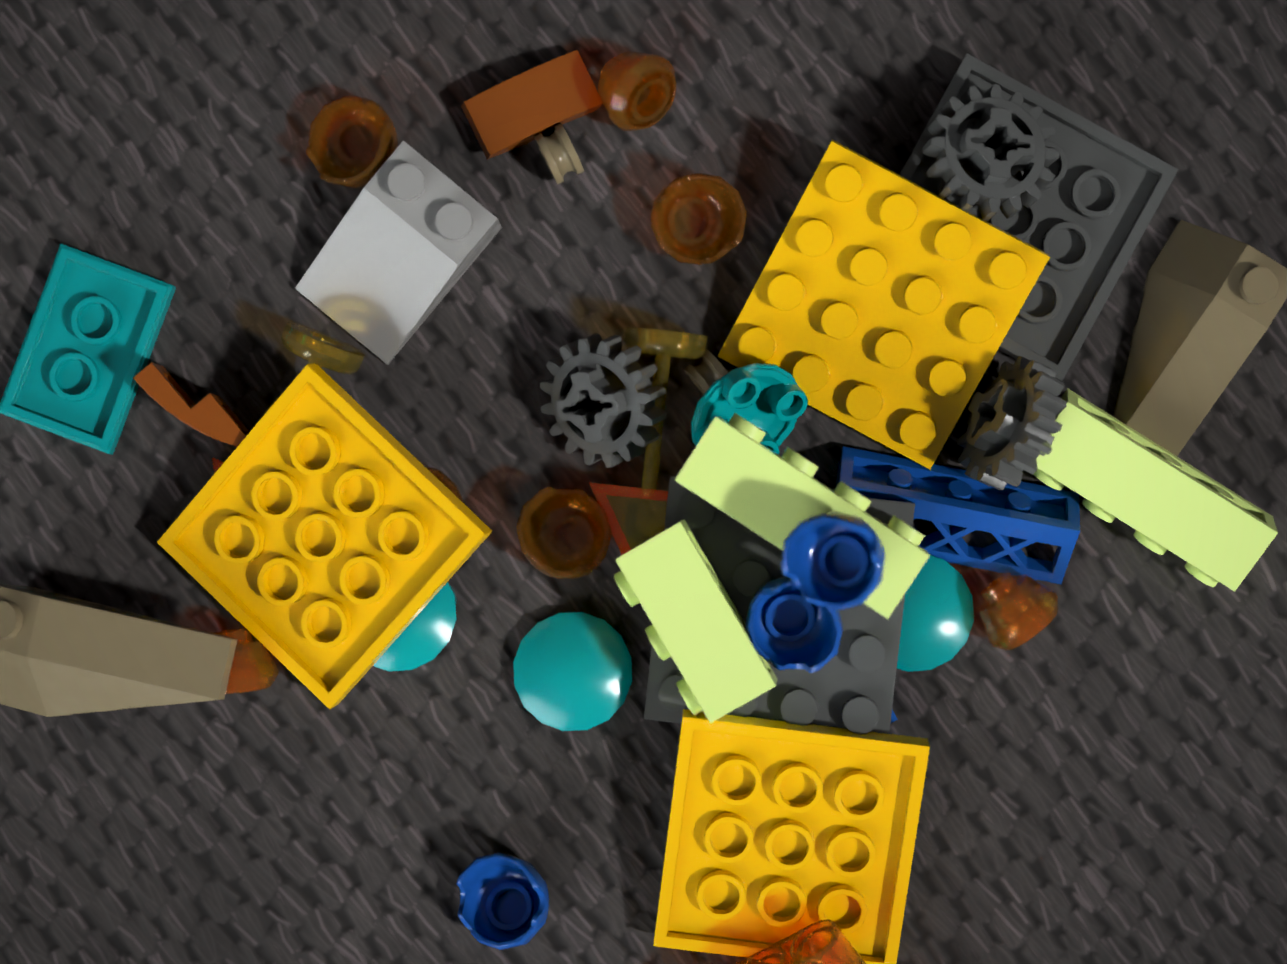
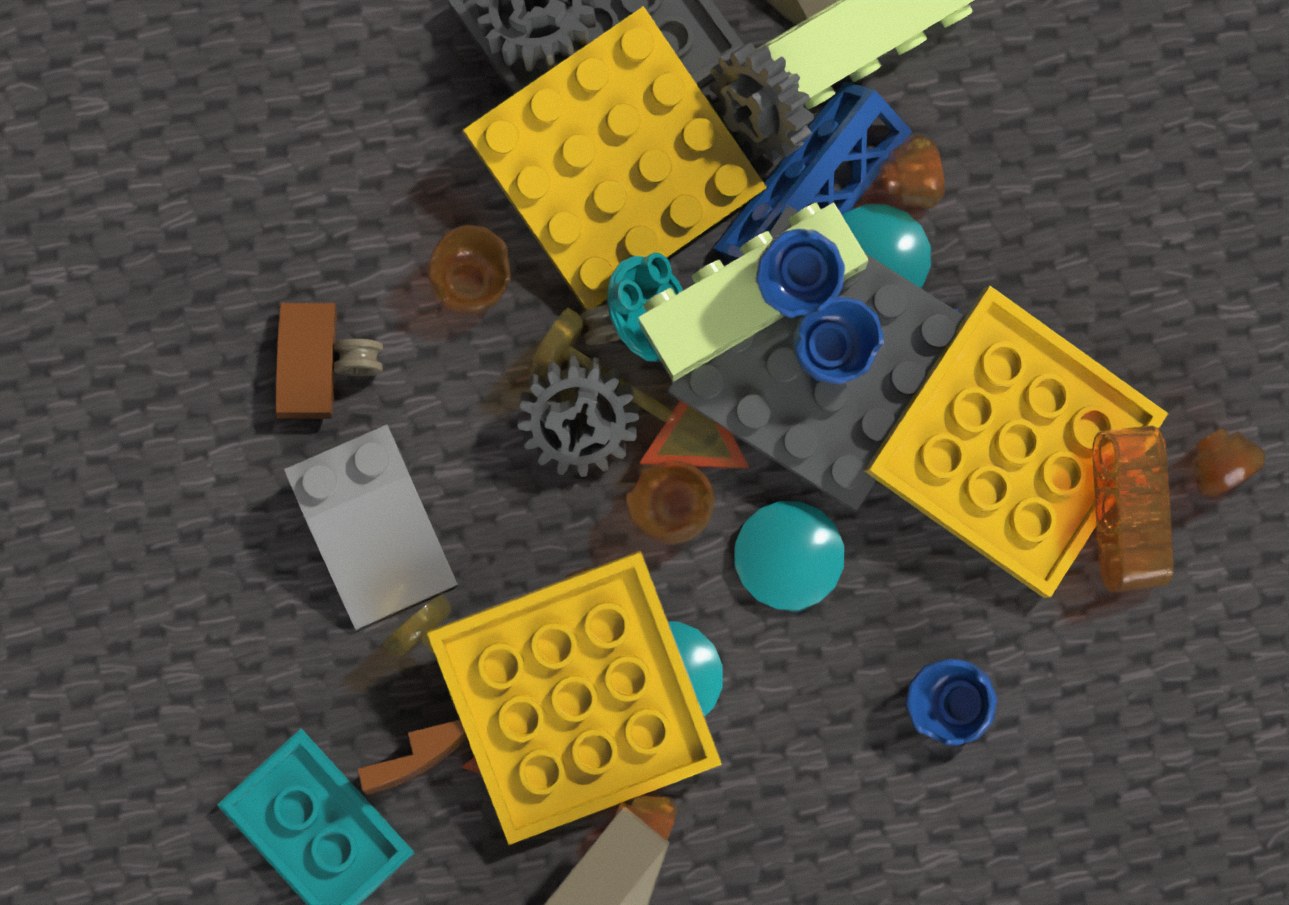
camera: 60 degrees left, 10 degrees down
(366, 134) = (260, 506): clear orange hair -> none
(637, 89) = (338, 269): clear orange cone -> none
(694, 622) = (796, 421): yellowish green brick -> none

